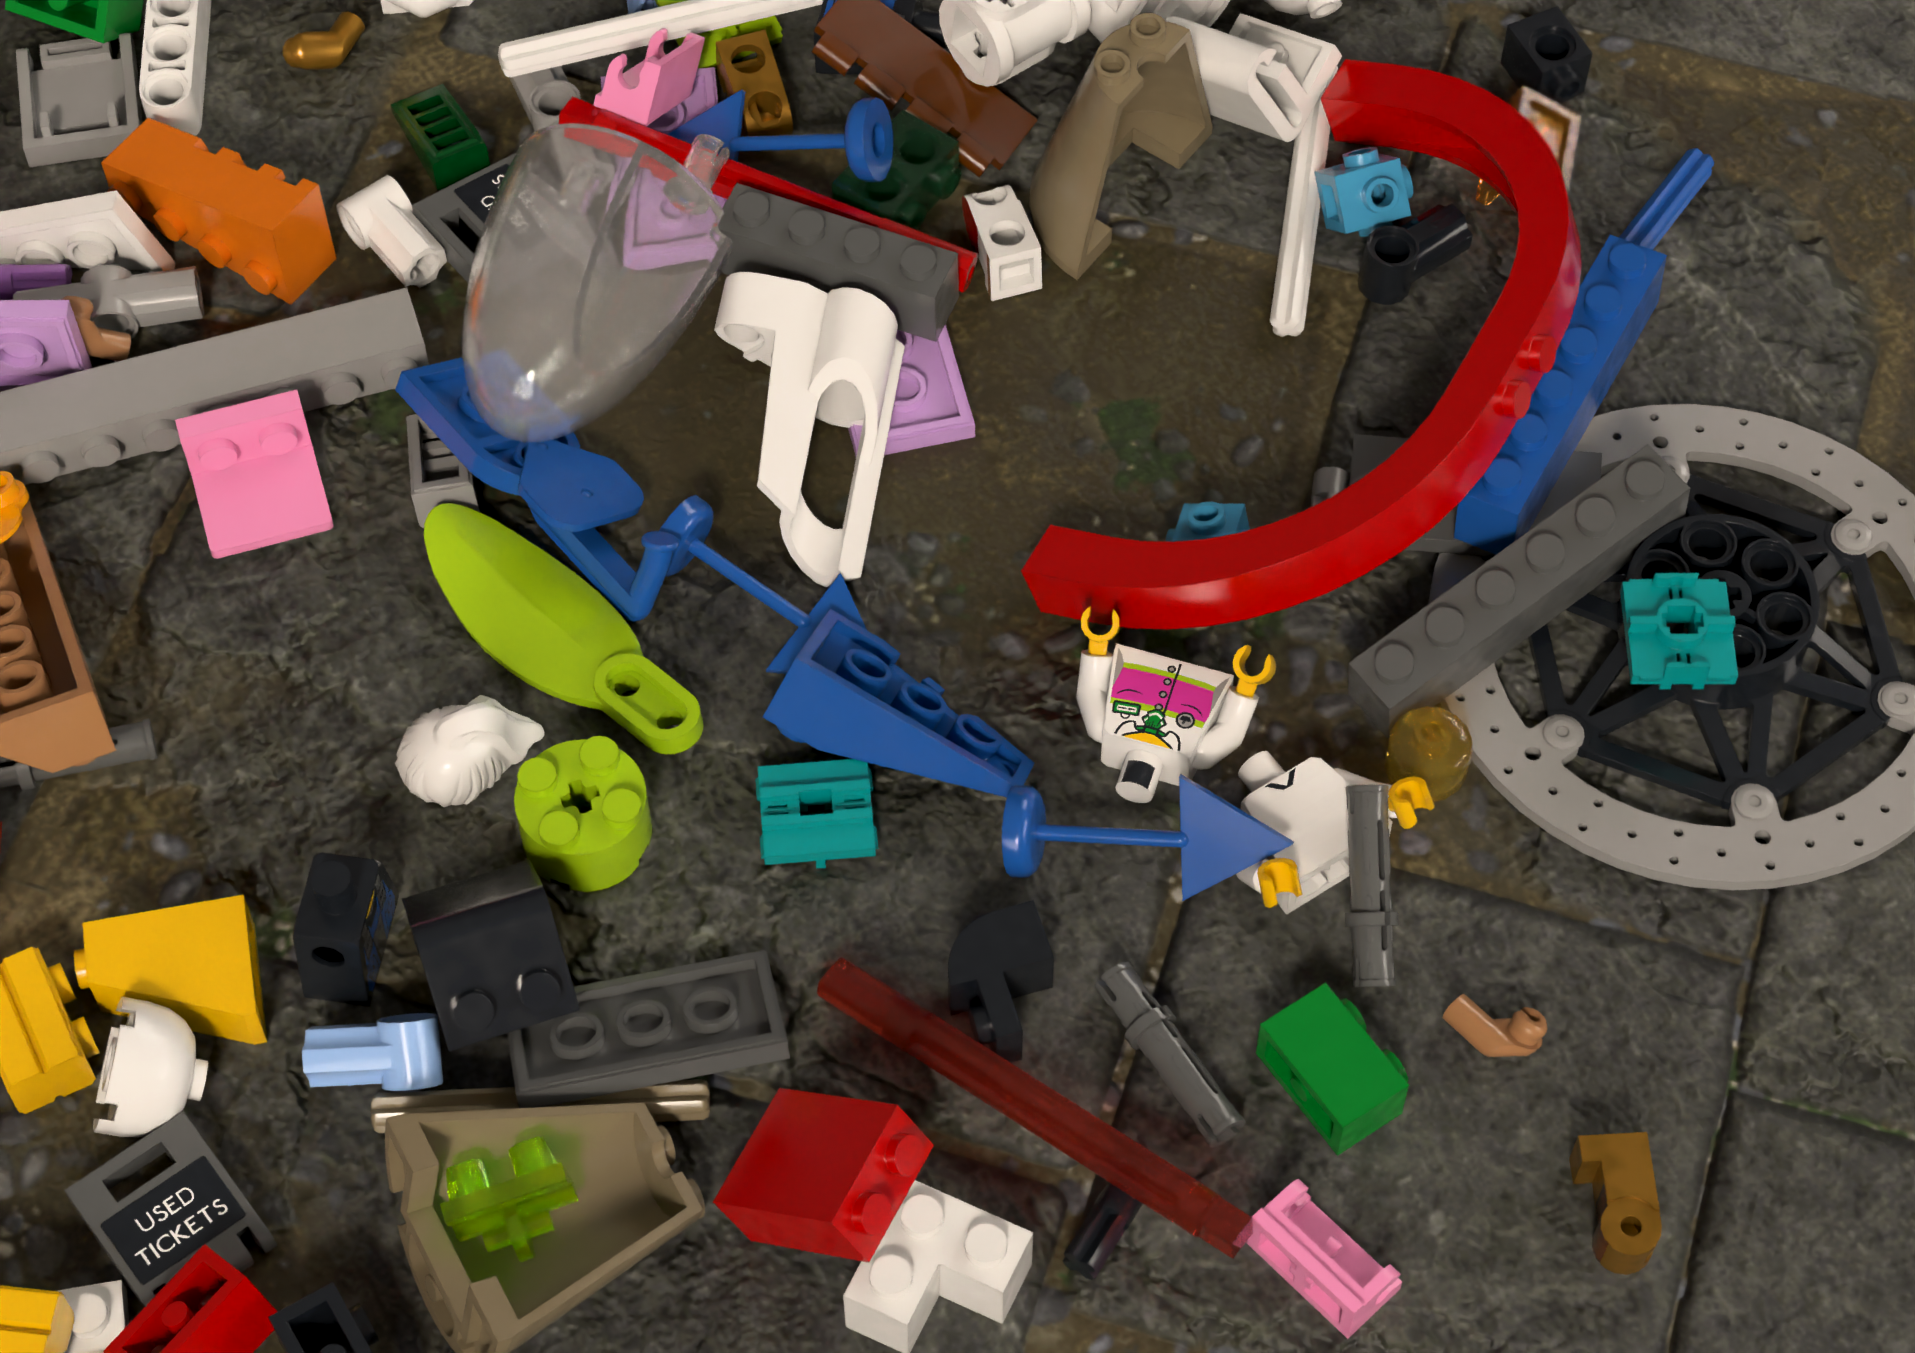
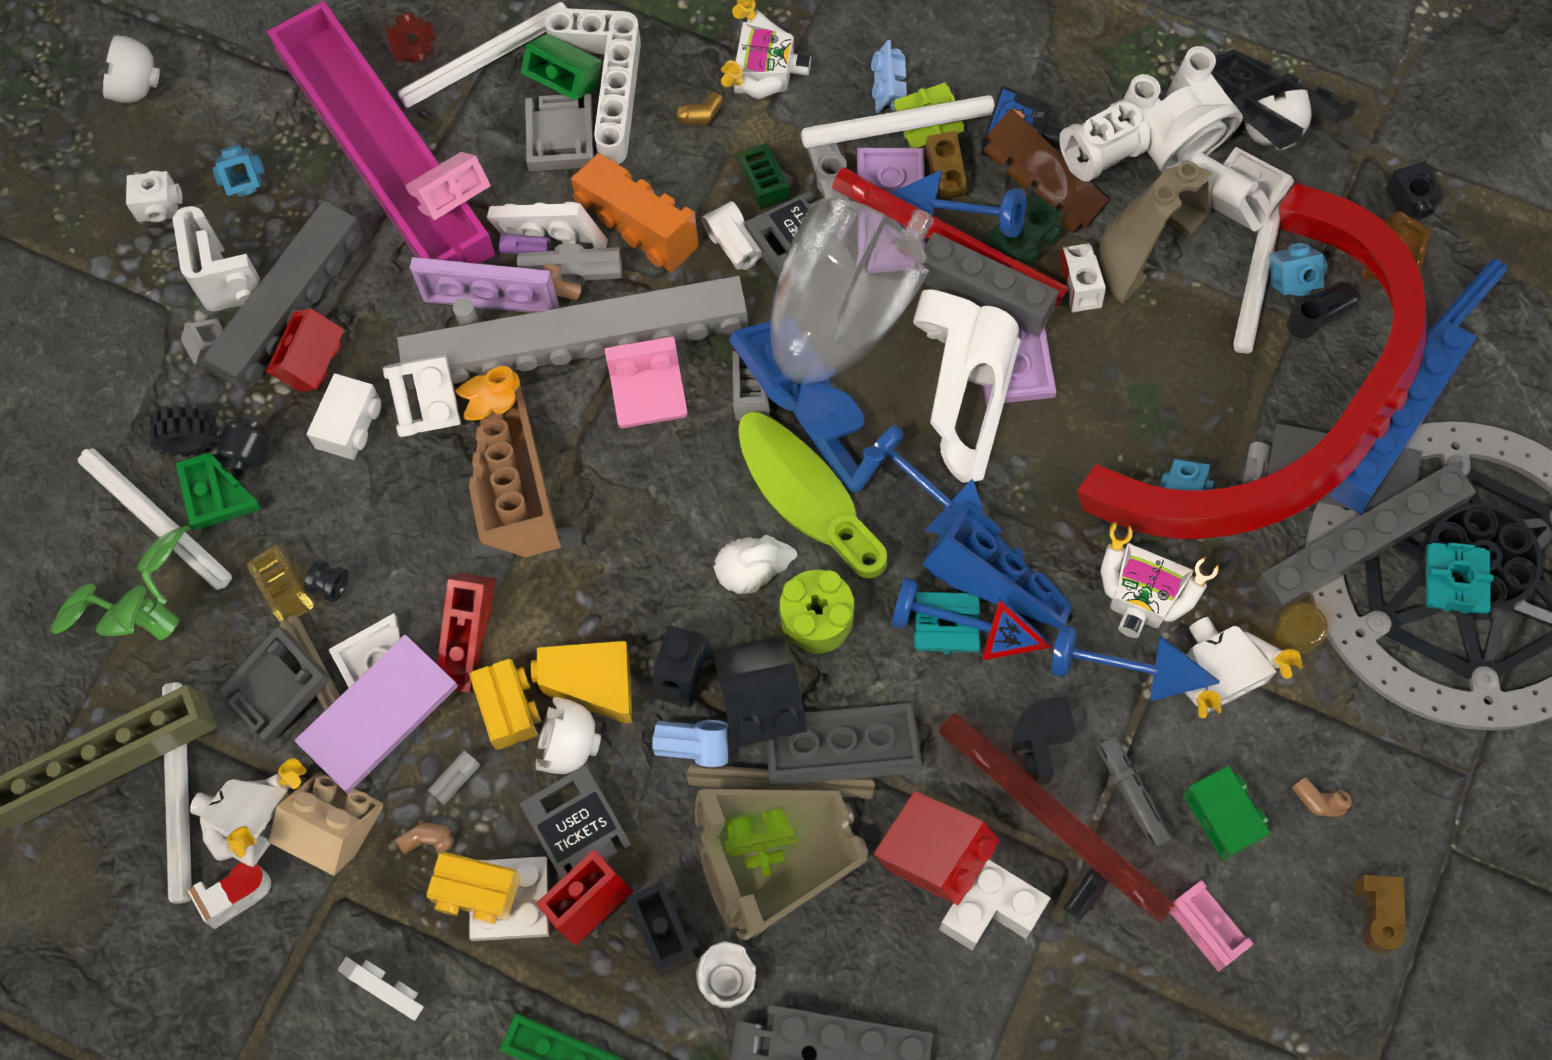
camera: 10 degrees right, 10 degrees up
(654, 83) = (889, 160): bright pink hinge -> none
(923, 810) = (1008, 632): none -> blue piece
(1371, 895) = (1258, 722): dark grey pin -> none

